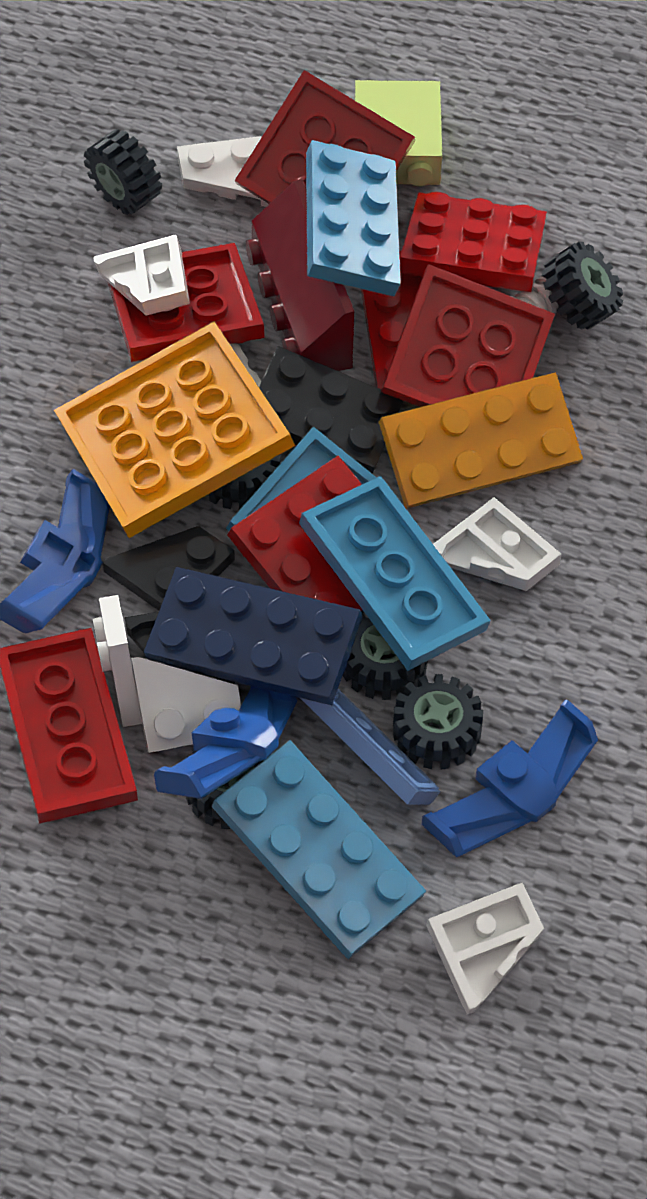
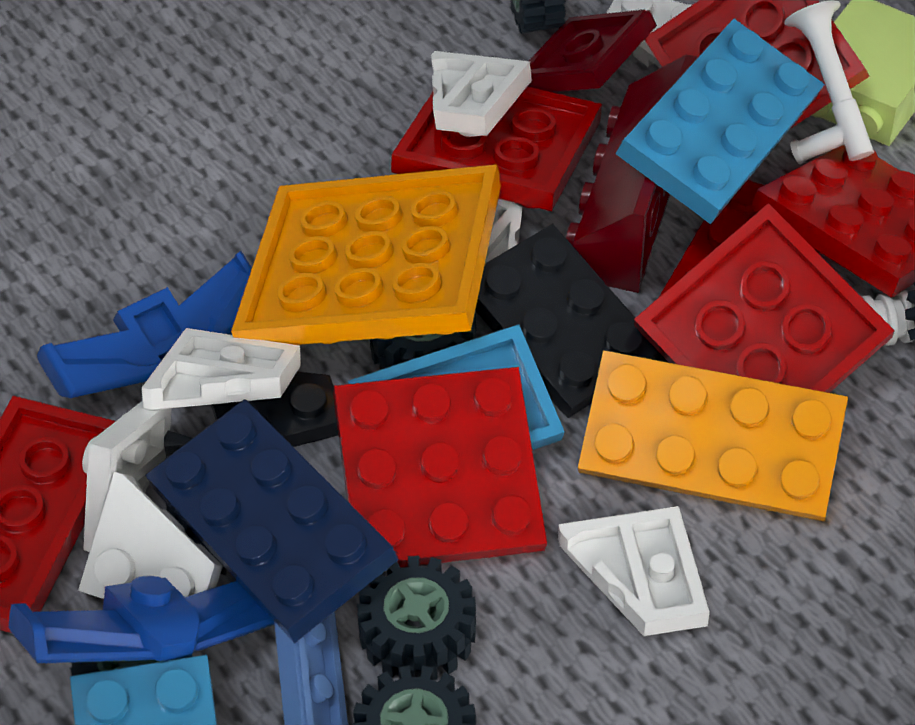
camera: 35 degrees right, 5 degrees down
(136, 557) = (218, 370): none -> white wing
(198, 205) = (589, 50): none -> dark red tile
(394, 572) = (476, 530): dark azure plate -> none
(427, 183) = (816, 25): none -> white piece

